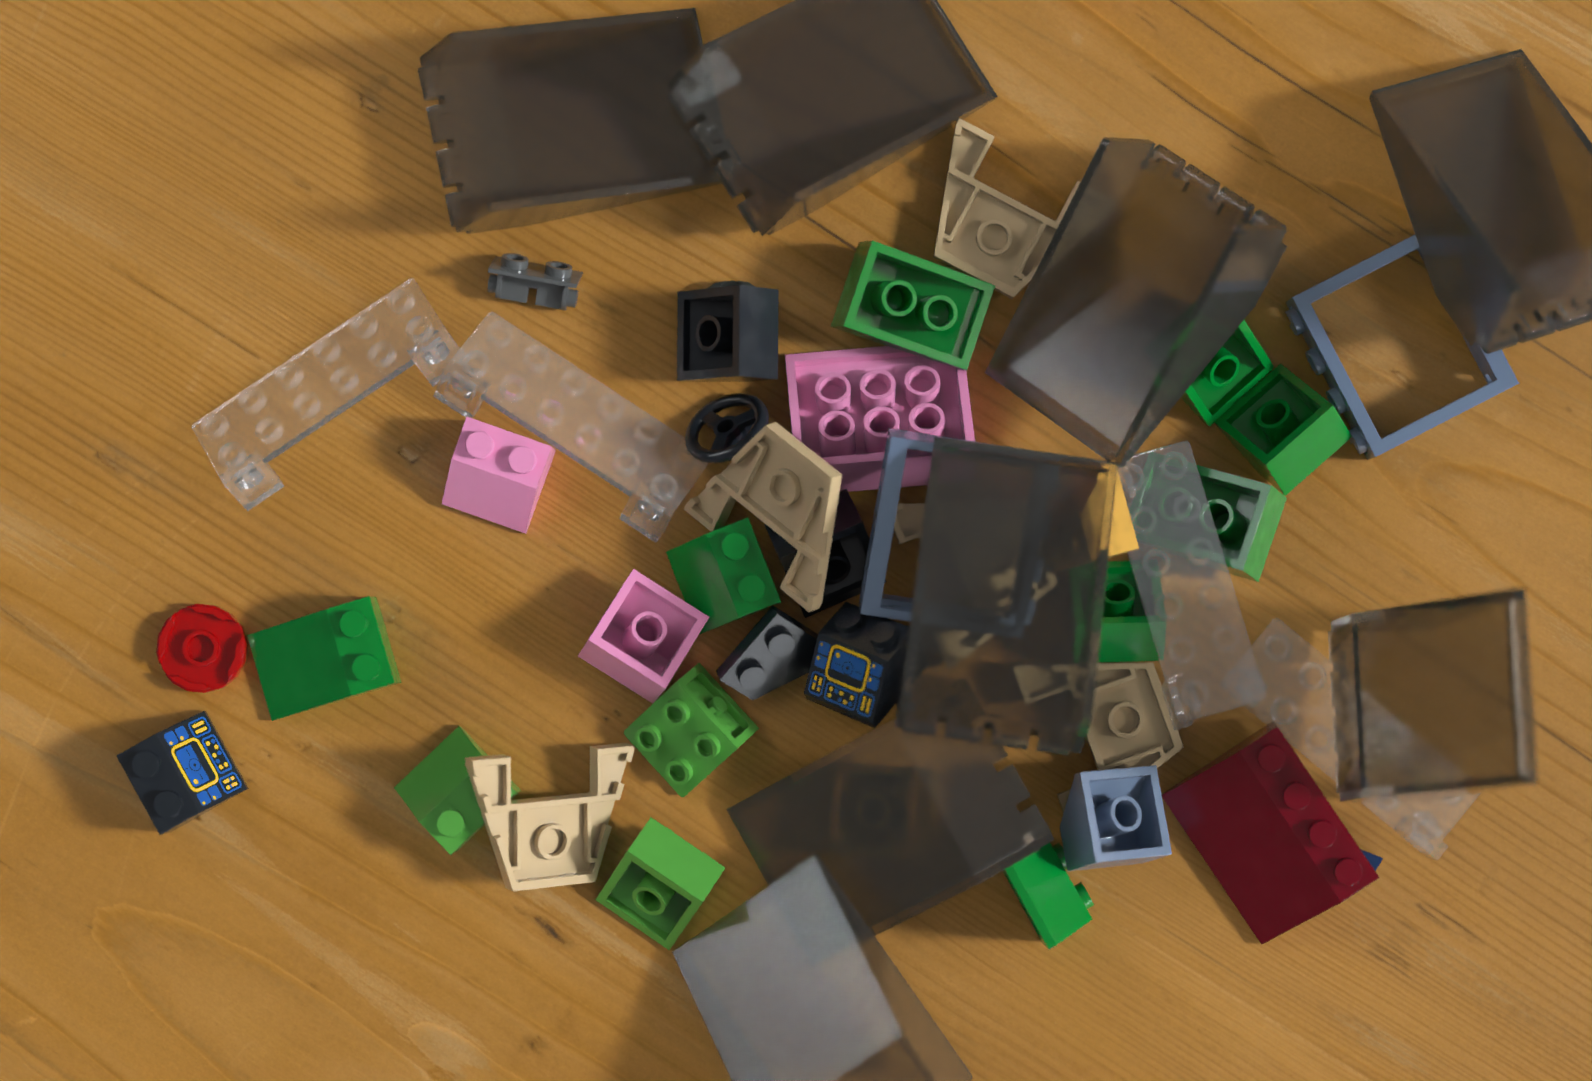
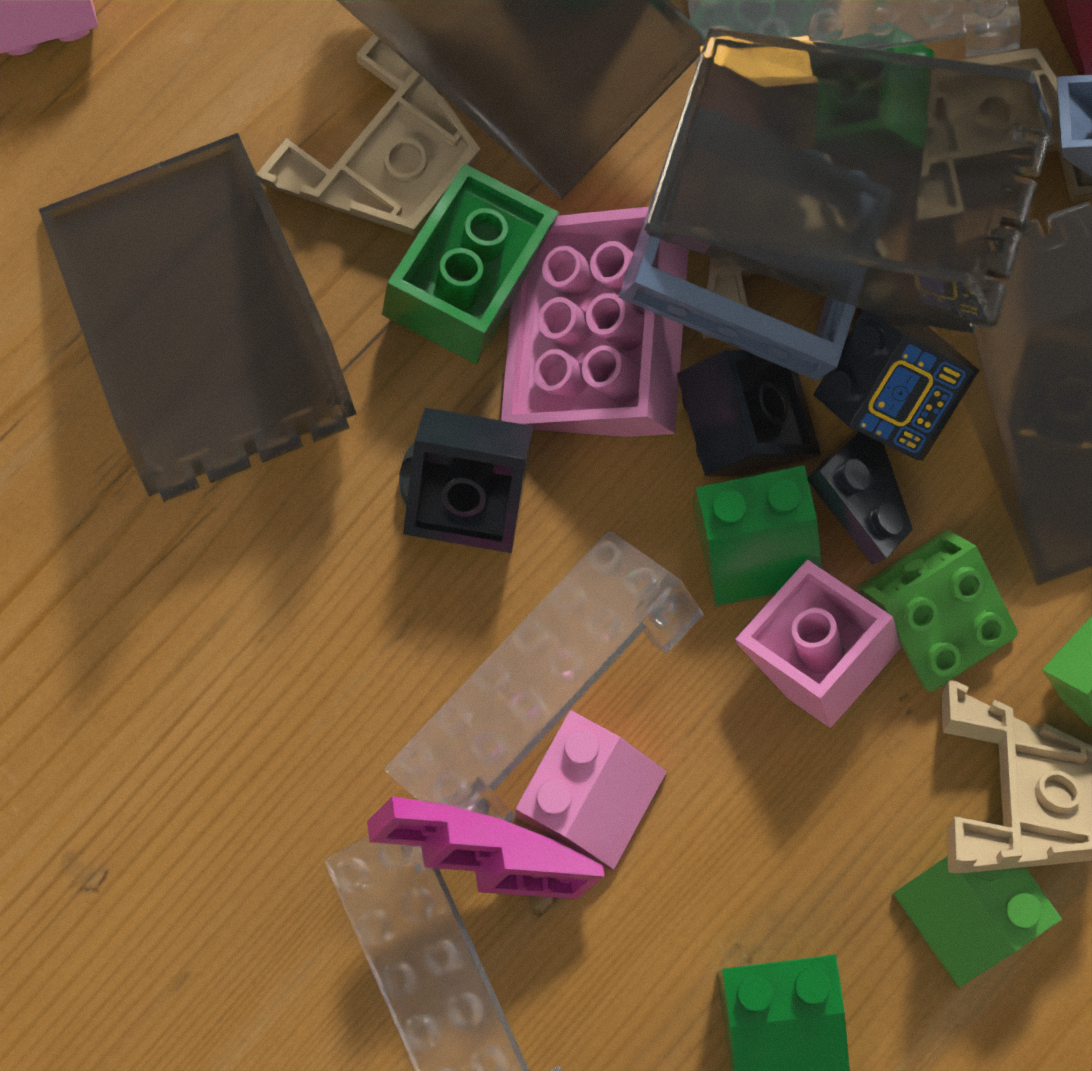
camera: 85 degrees left, 10 degrees down
(430, 411) = (500, 853): none -> dark pink slope
(518, 275) = (345, 725): dark grey hinge -> none
(562, 118) = (163, 635): clear smoke windscreen -> none
(730, 431) = (586, 498): black piece -> none
(788, 492) = (675, 427): tan wing -> none

